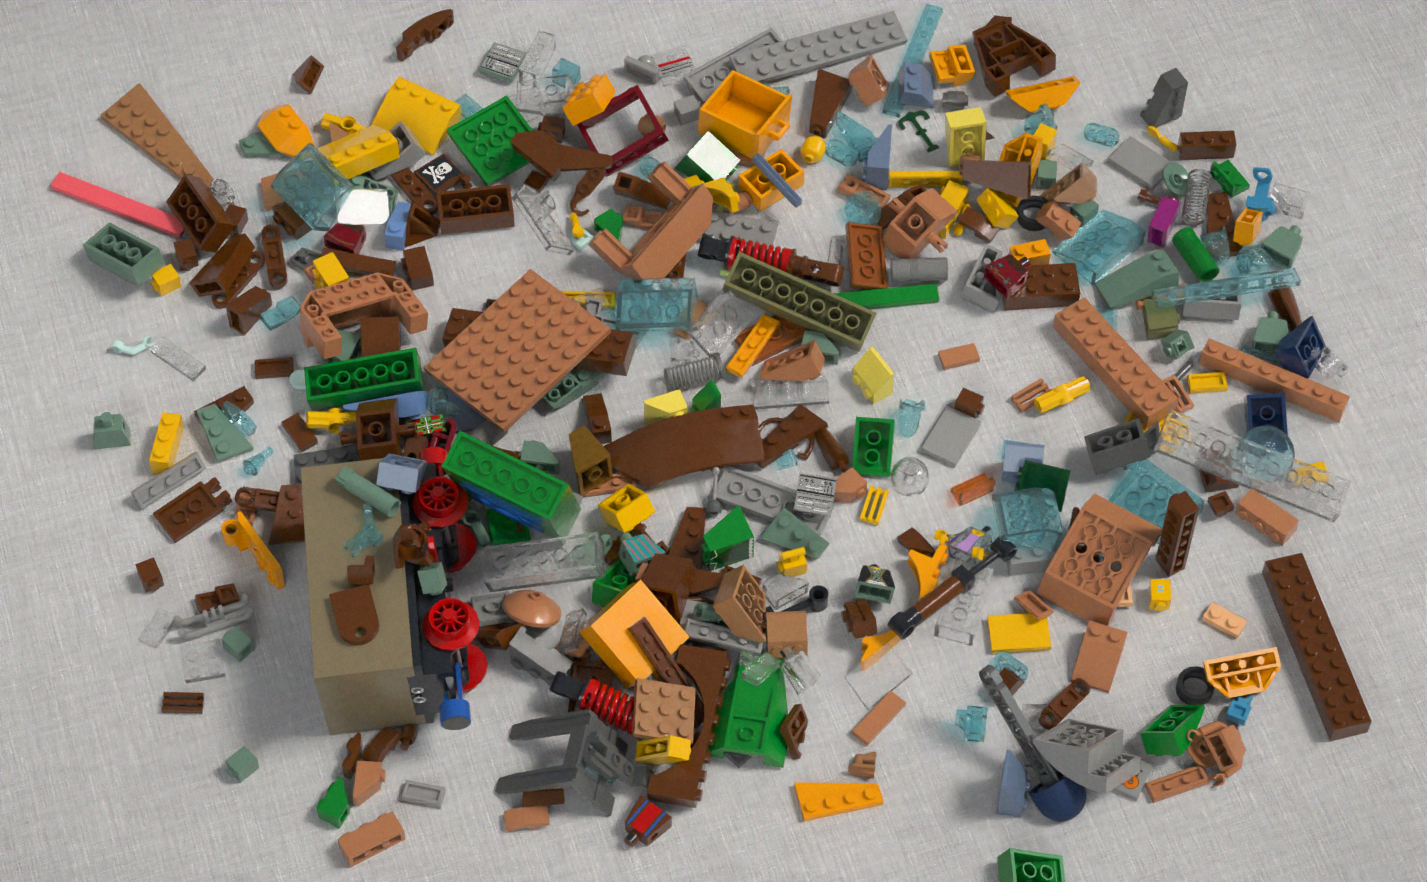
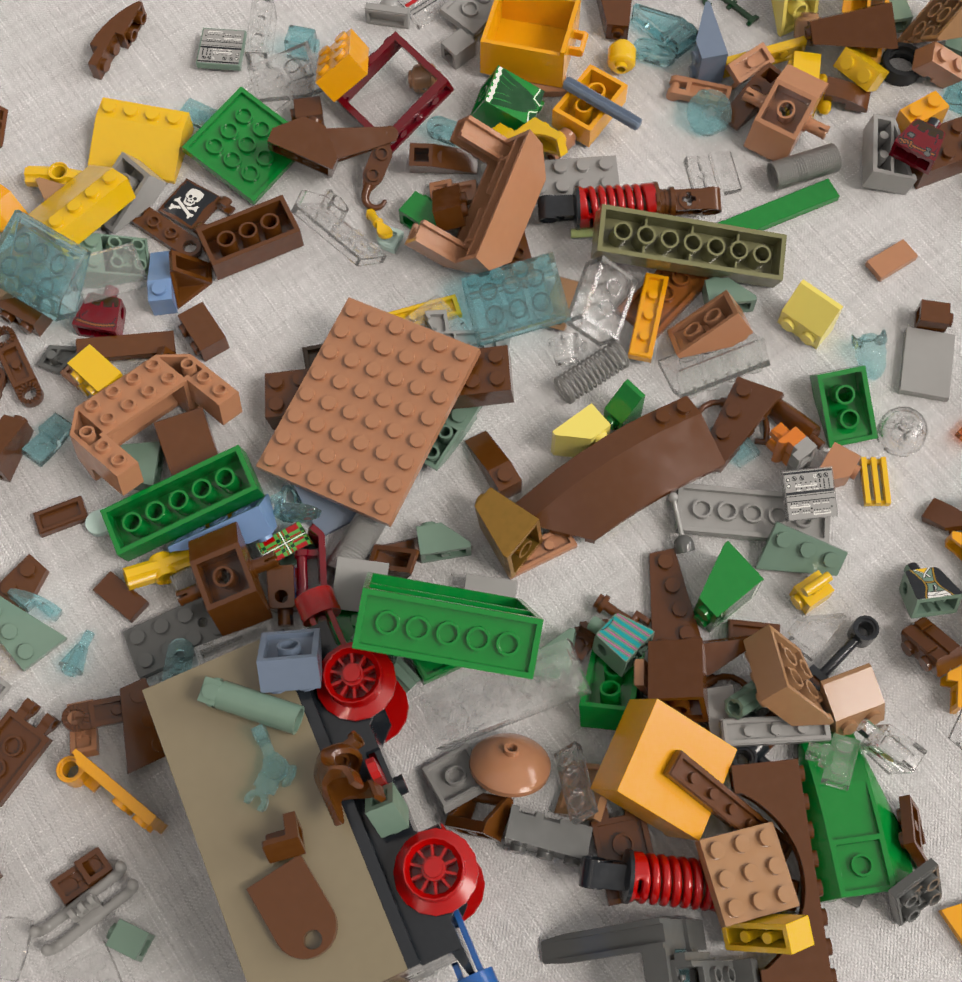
camera: 15 degrees left, 10 degrees up
(536, 181) = (310, 181): reddish brown plate -> none
(626, 508) = (580, 582): yellow brick -> none
(632, 226) = (450, 207): none -> reddish brown brick
(777, 762) = (915, 893): none -> dark grey tile
(817, 460) = (791, 447): none -> hips
(866, 256) = (735, 168): dark orange tile -> none
(907, 180) = (749, 64): none -> nougat panel

